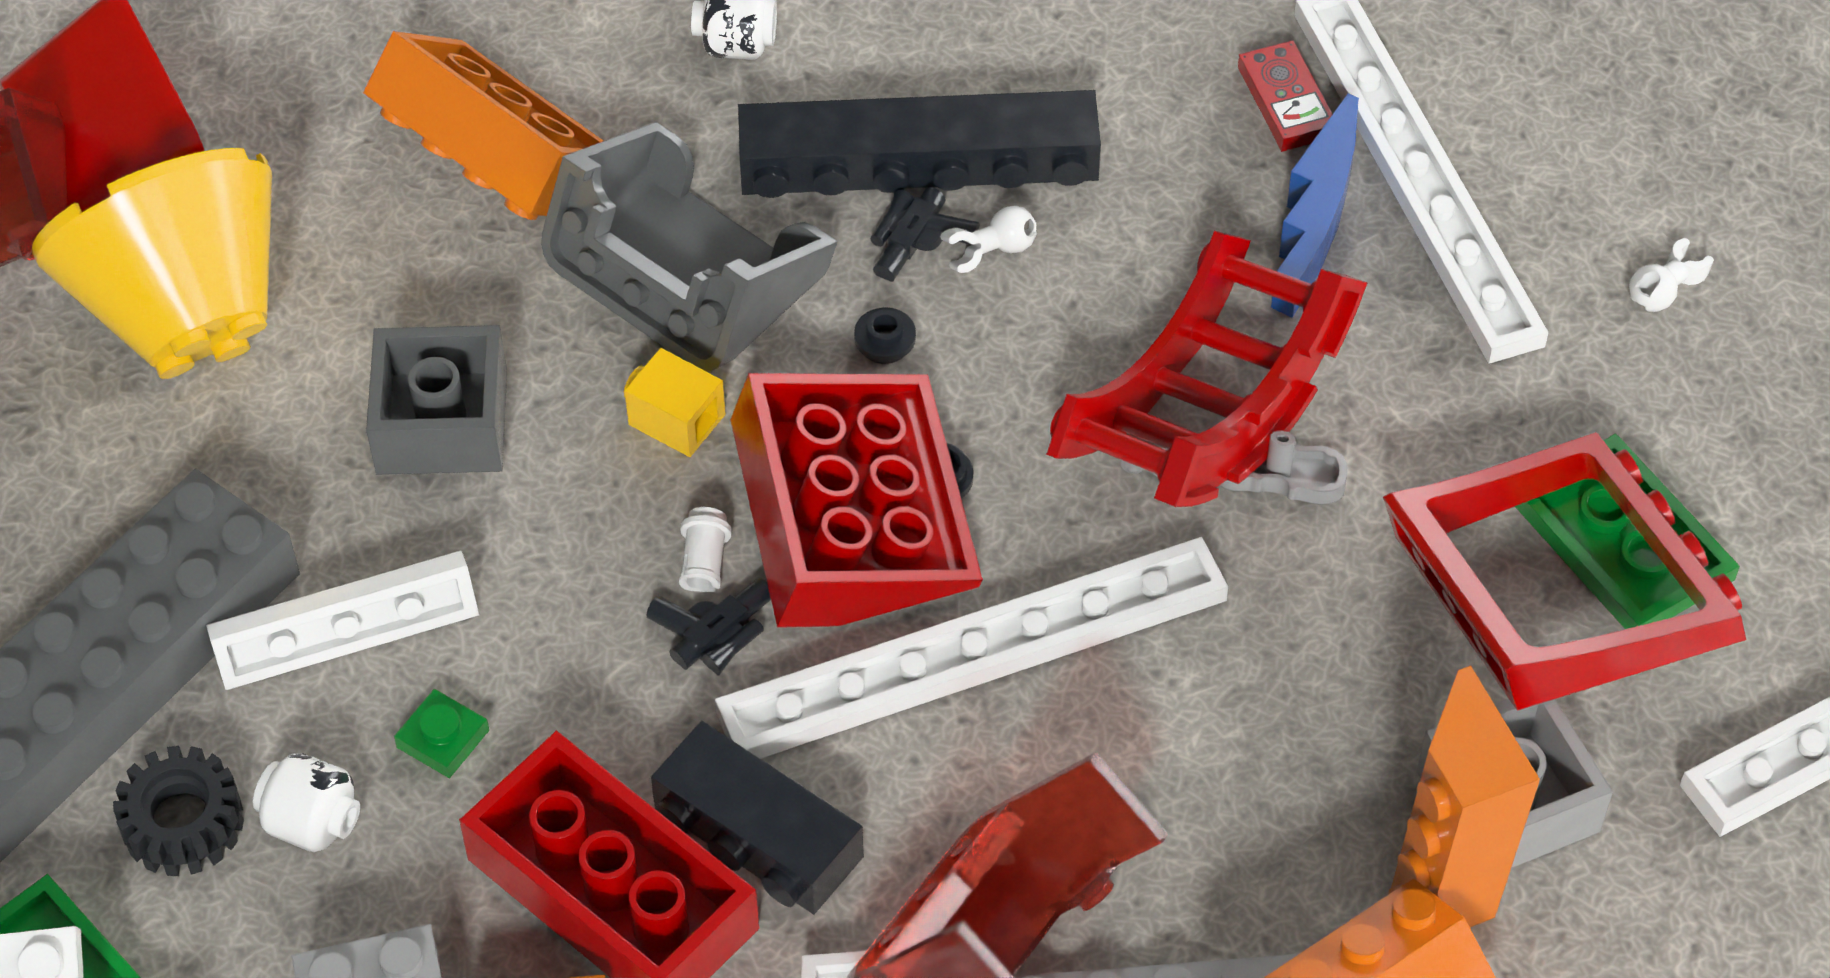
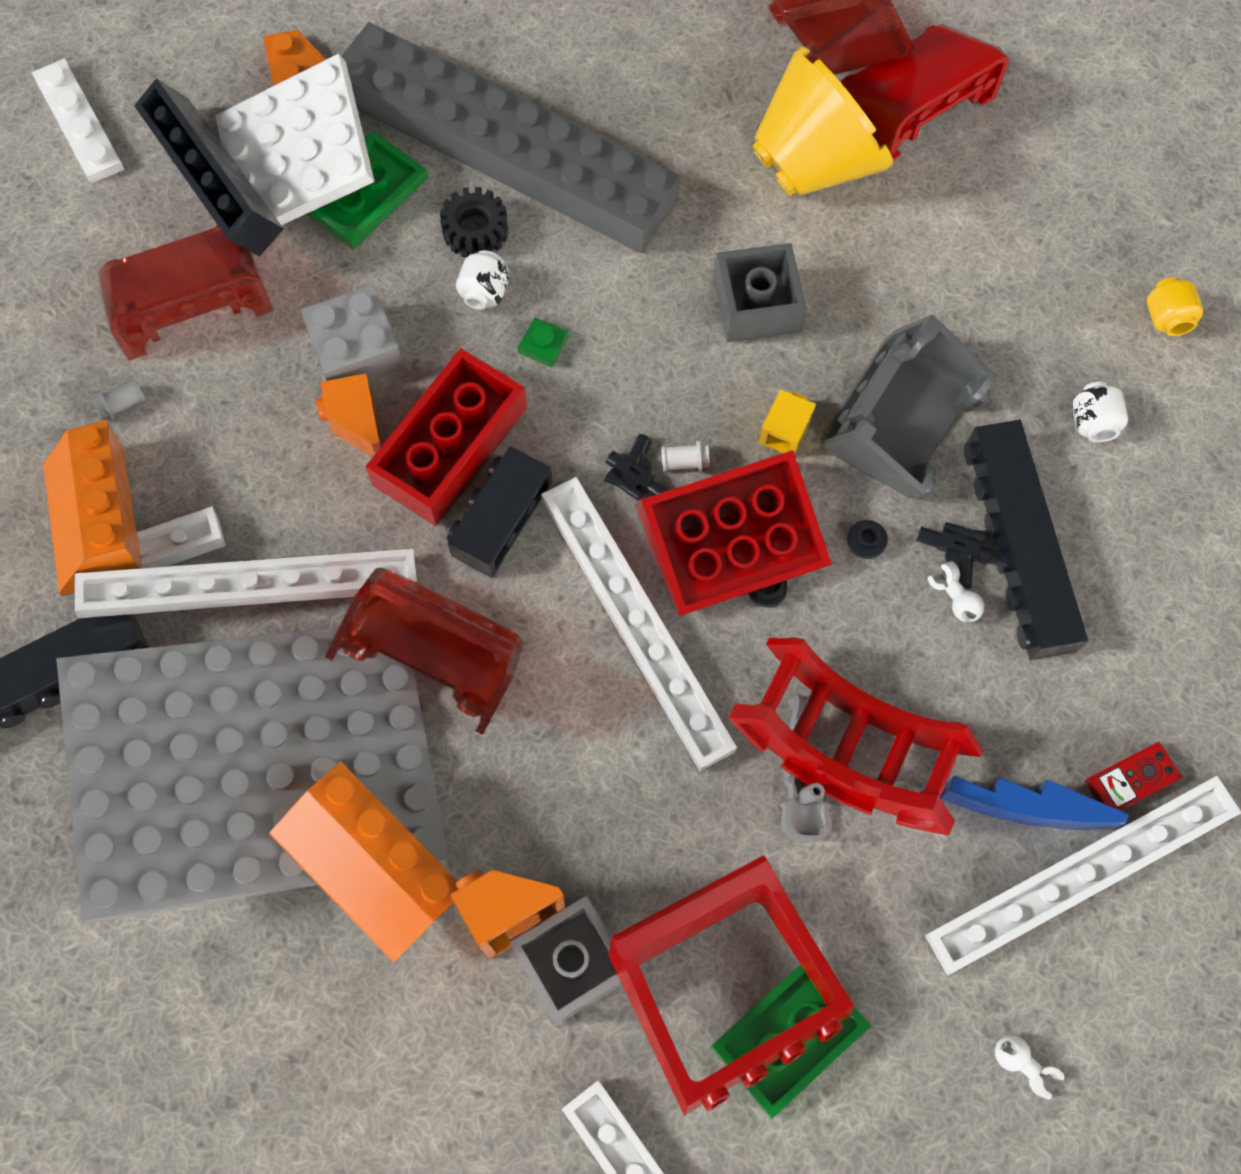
camera: 80 degrees right, 15 degrees up
(343, 620) = (605, 277): white plate -> none
(477, 117) = (987, 281): orange slope -> none

